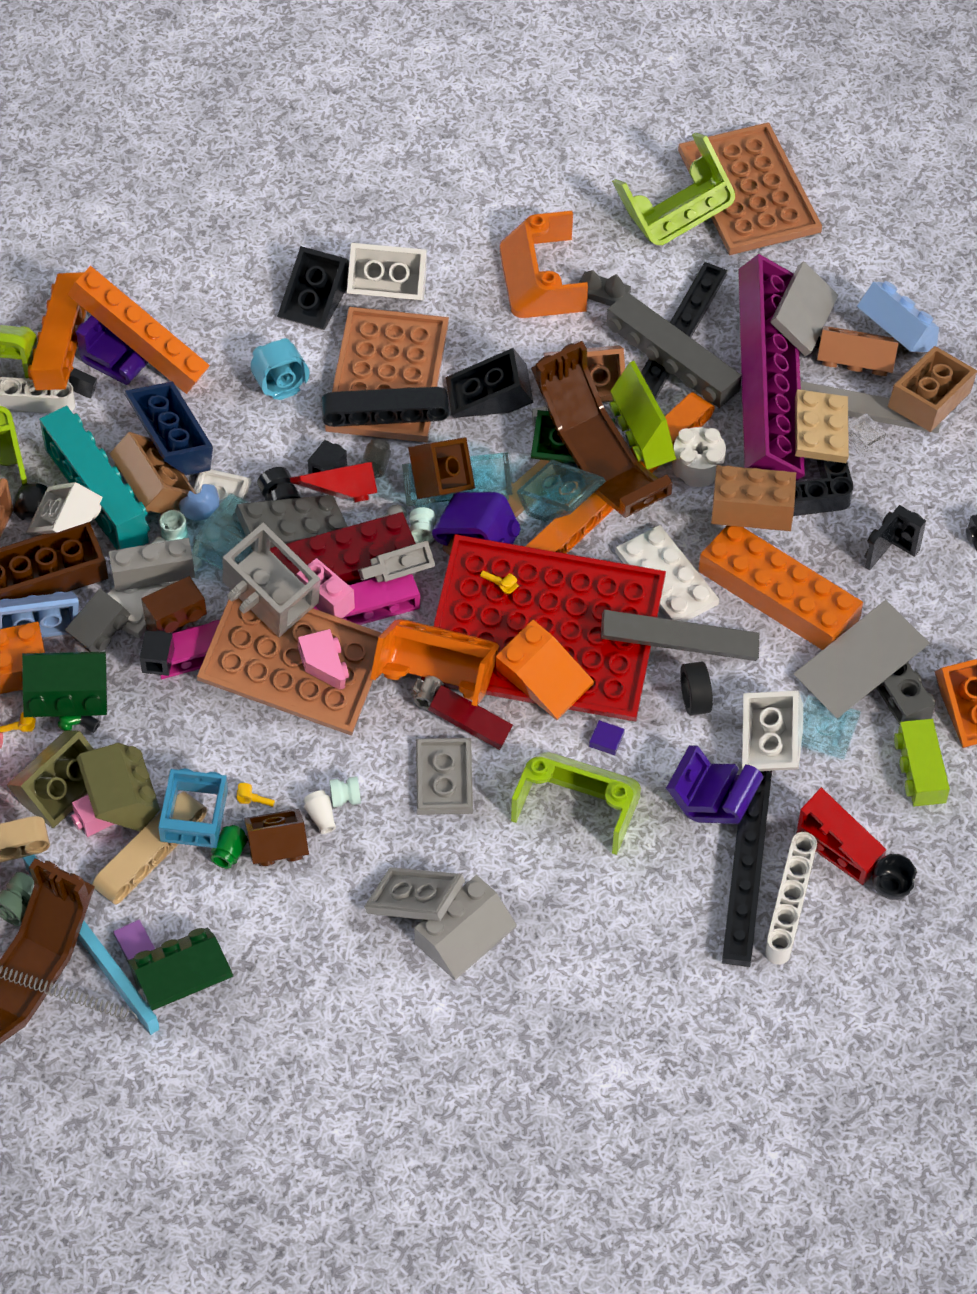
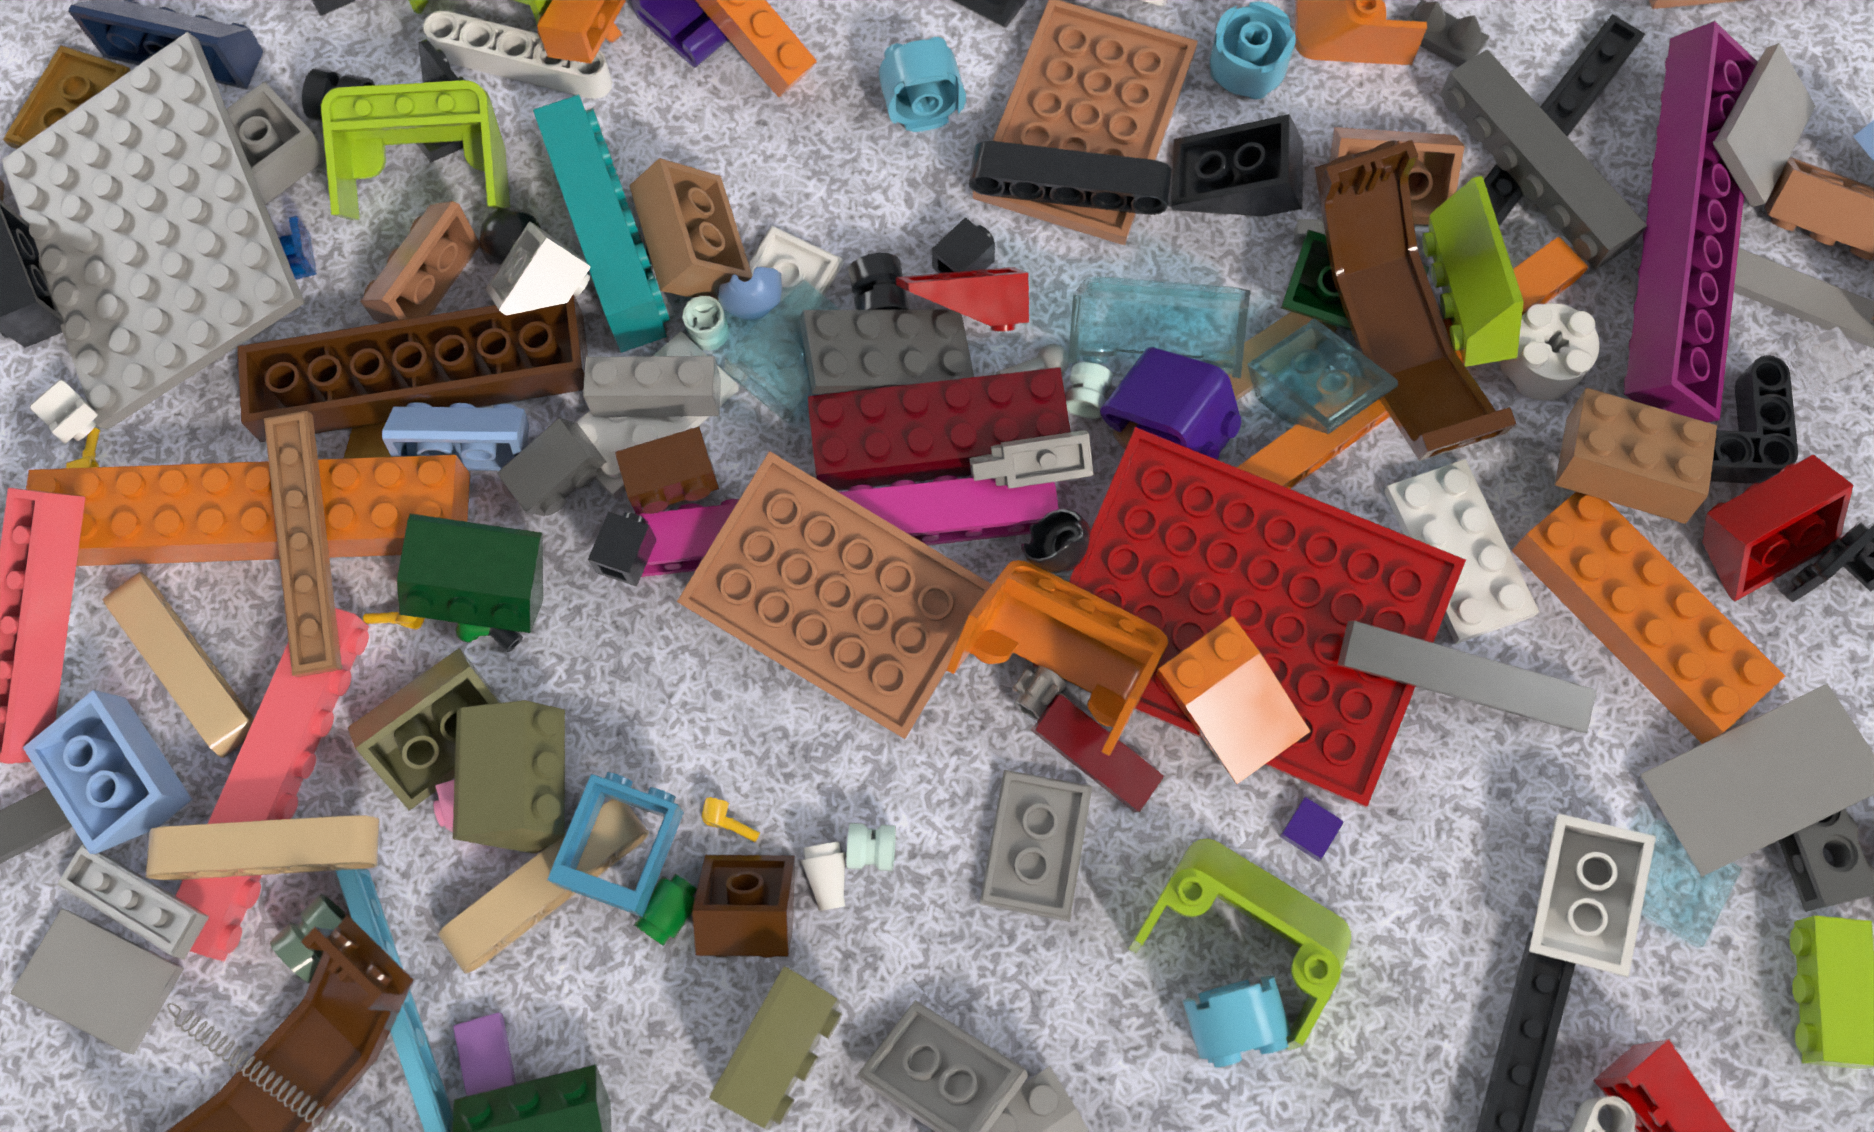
camera: 15 degrees right, 15 degrees up
(82, 383) = (624, 55): black tile -> none
(172, 427) = (733, 156): dark blue slope -> none
(267, 584) = (813, 472): light grey piece -> none
(313, 900) = (777, 1050): none -> olive slope
(321, 658) = (876, 612): bright pink slope -> none
(334, 595) = (910, 489): bright pink slope -> none
(378, 453) = (1041, 258): clear smoke brick -> none
(422, 605) = (1058, 541): none -> black hair
(441, 468) = (1136, 303): reddish brown slope -> none
(483, 316) = (1252, 49): none -> medium azure brick
(507, 584) = (1202, 534): yellow hand -> none
(580, 835) = (1238, 1020): none -> medium azure brick
(696, 688) = (1478, 779): black tyre -> none
(712, 790) = (1478, 980): dark purple piece -> none
(821, 426) = (1764, 340): tan plate -> none
(843, 527) = (1776, 525): none -> red slope

